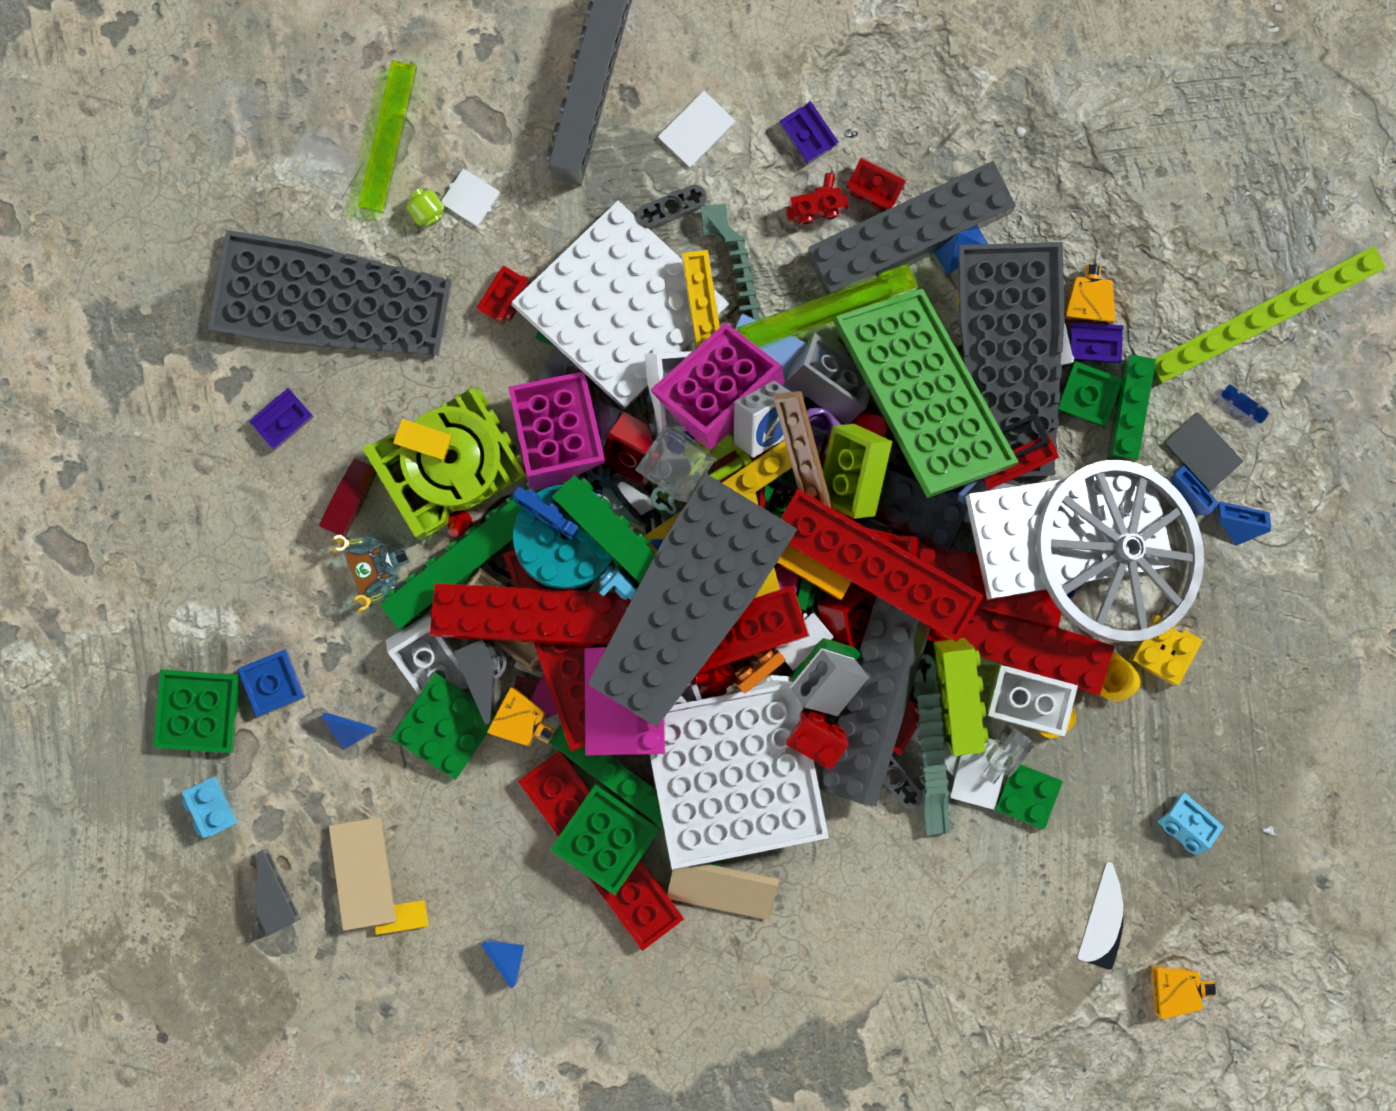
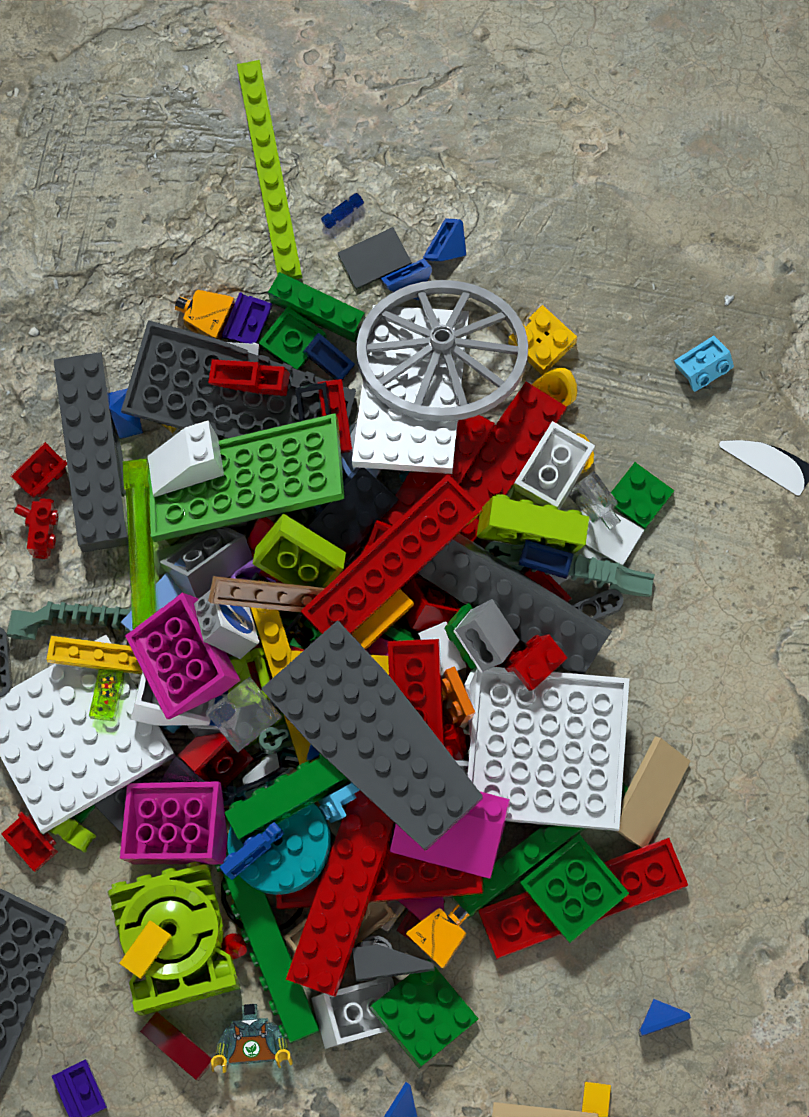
camera: 65 degrees left, 10 degrees down
(522, 336) = (74, 834): none -> lime leg
(664, 323) = (106, 695): none -> clear neon green tile
(927, 326) = (186, 459): none -> white slope
(929, 720) = (546, 559): none -> dark blue tile
(1032, 363) = (249, 377): none -> red slope
(1080, 437) = (328, 357): none -> dark blue tile

